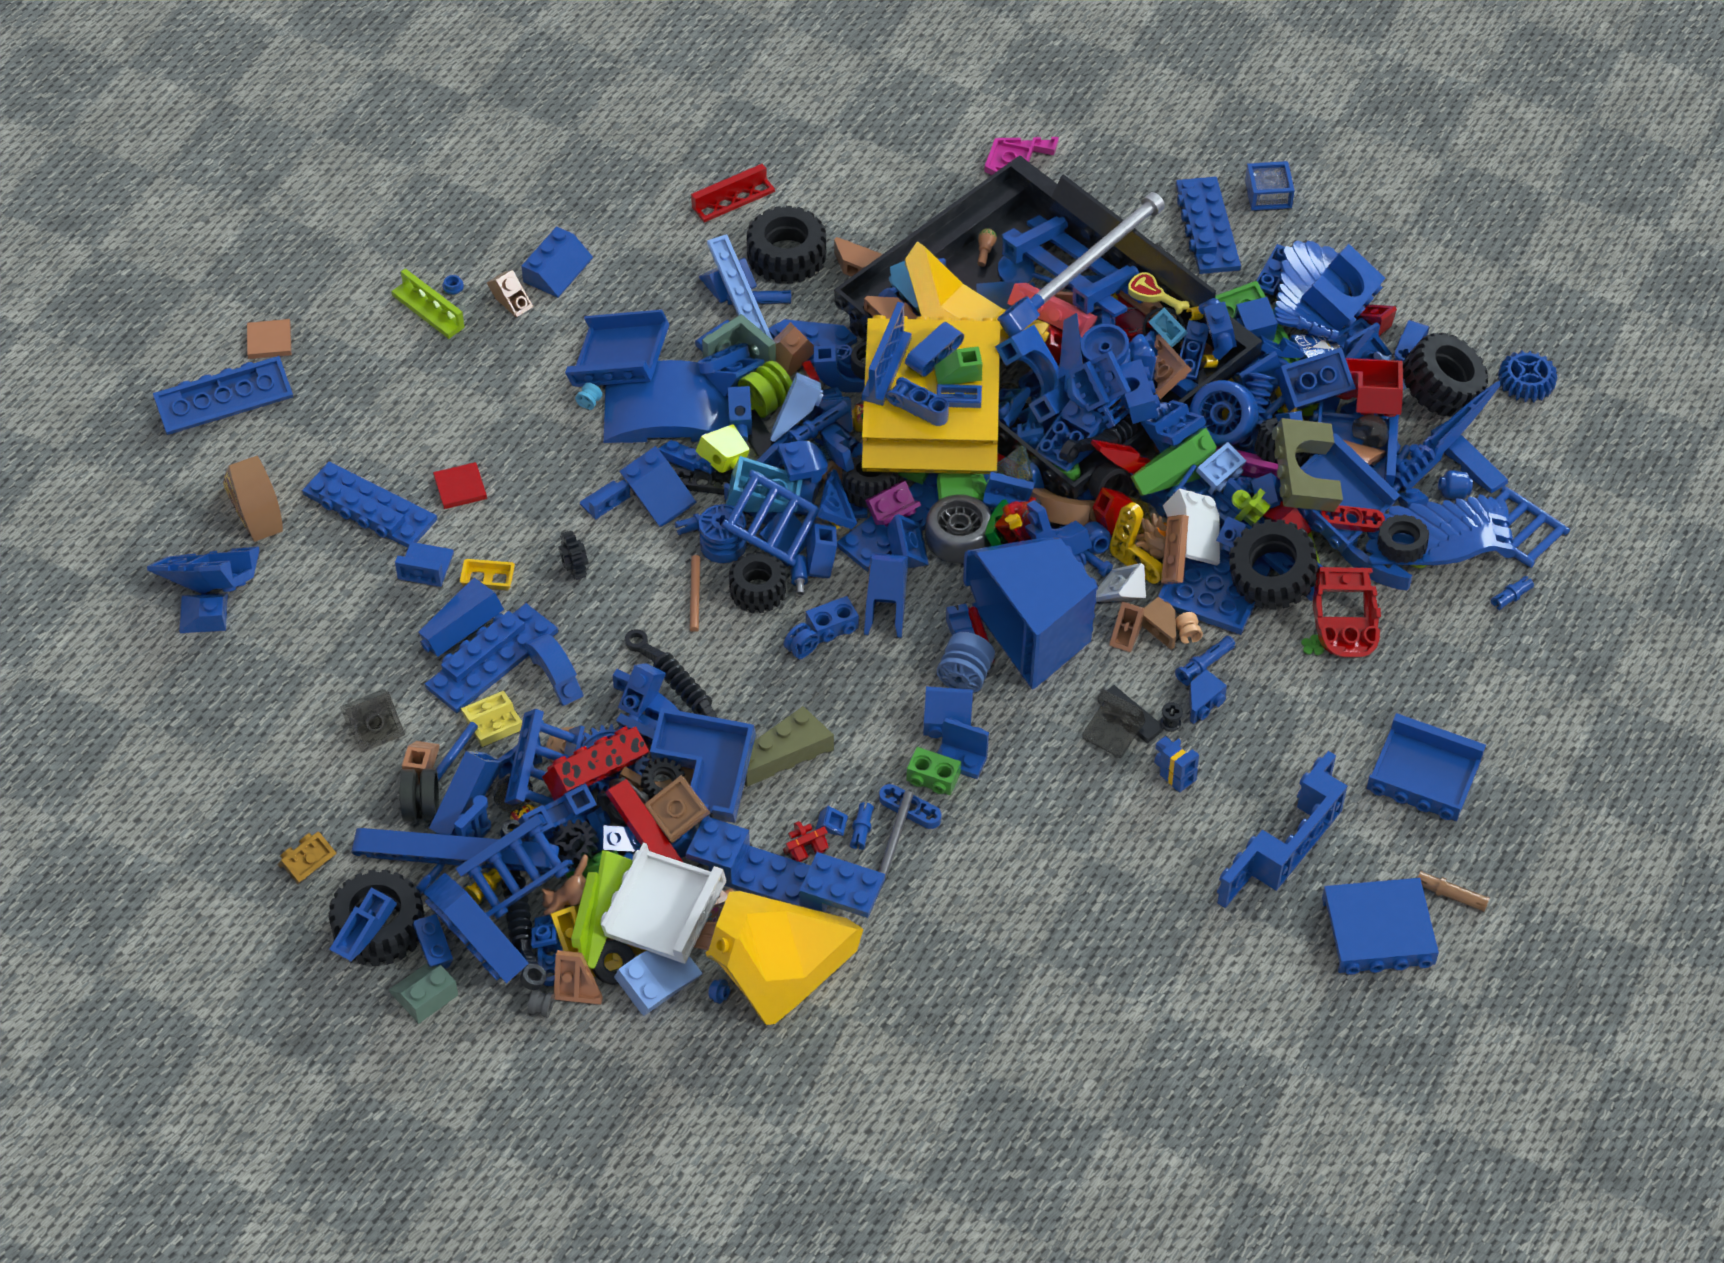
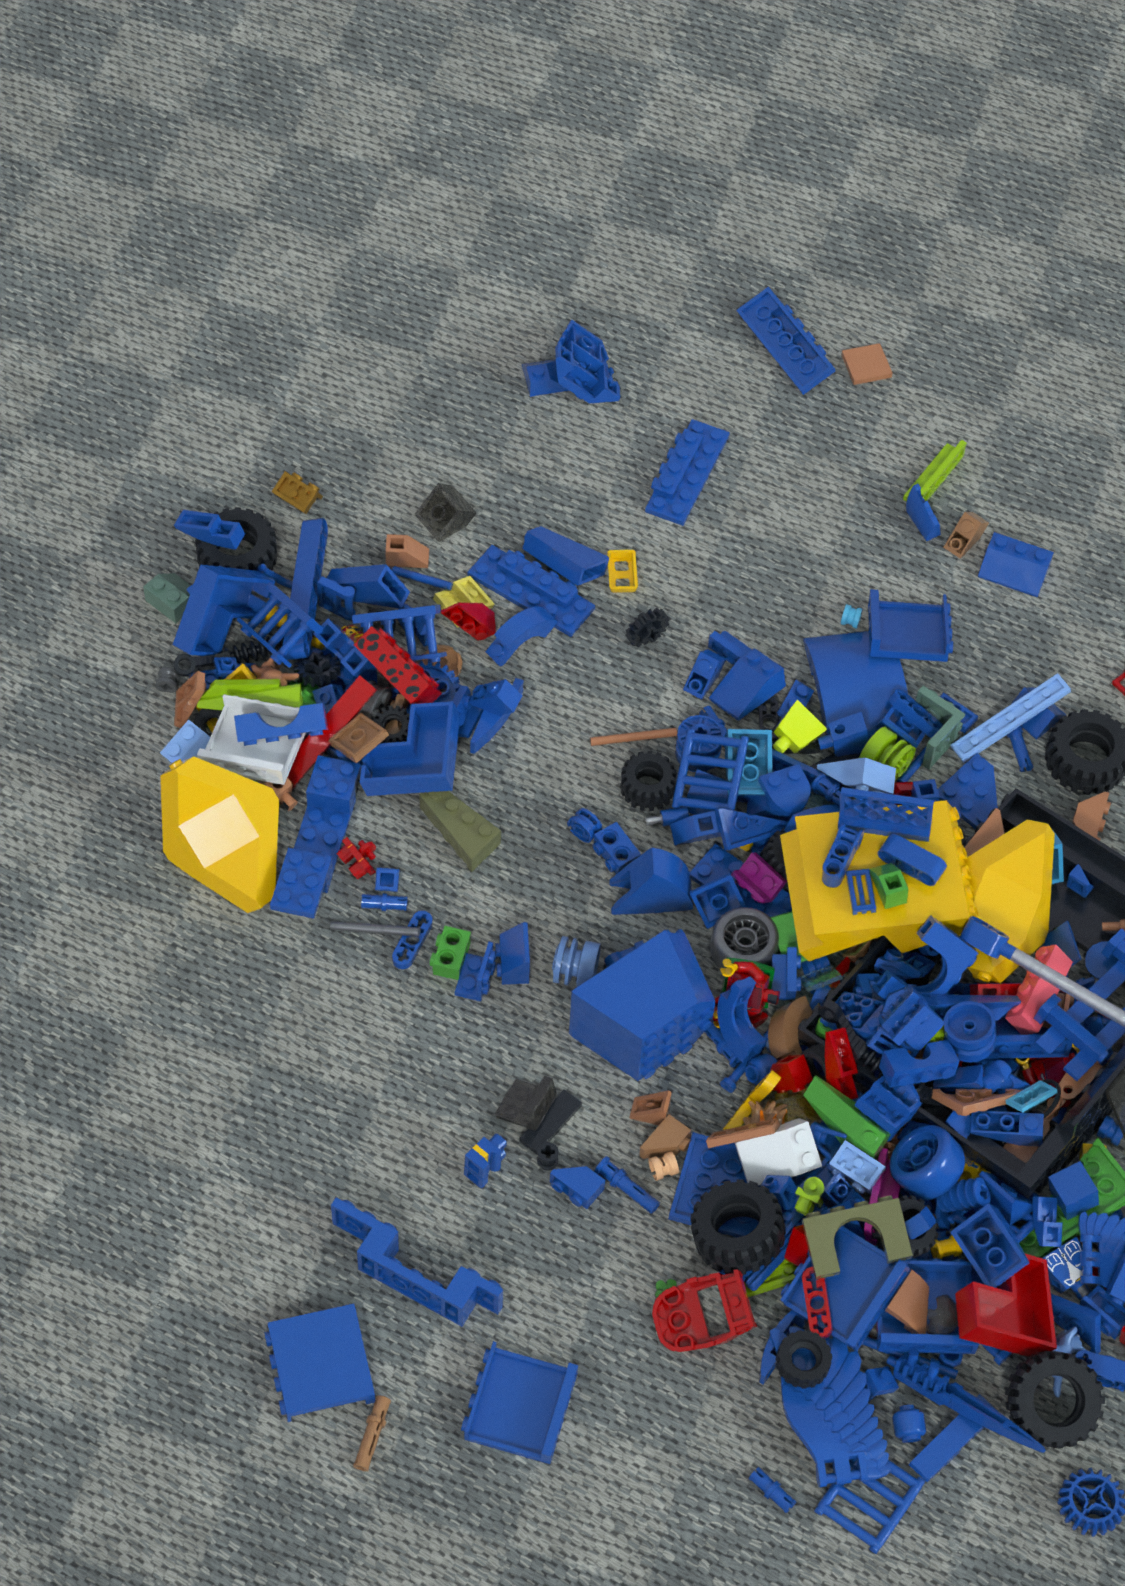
camera: 80 degrees right, 5 degrees up
(253, 498) = (665, 379): medium nougat piece -> none
(417, 796) = (361, 548): pearl dark grey wheel -> none
(424, 564) = (625, 522): blue bracket -> none
(448, 284) = (968, 484): blue plate -> none
(460, 485) = (724, 535): red tile -> none
(481, 320) = (922, 514): none -> blue slope
(527, 700) = (472, 618): none -> red slope
(633, 521) = (704, 673): none -> blue slope
(660, 839) = (309, 719): none -> blue arch
(675, 674) = (513, 737): black piece -> none
(792, 349) = (950, 773): nougat slope -> none
(1123, 584) = (703, 1099): white slope -> none
(1145, 289) = (1077, 1068): light yellow piece -> none
(1219, 327) = (1030, 1136): blue torso -> none

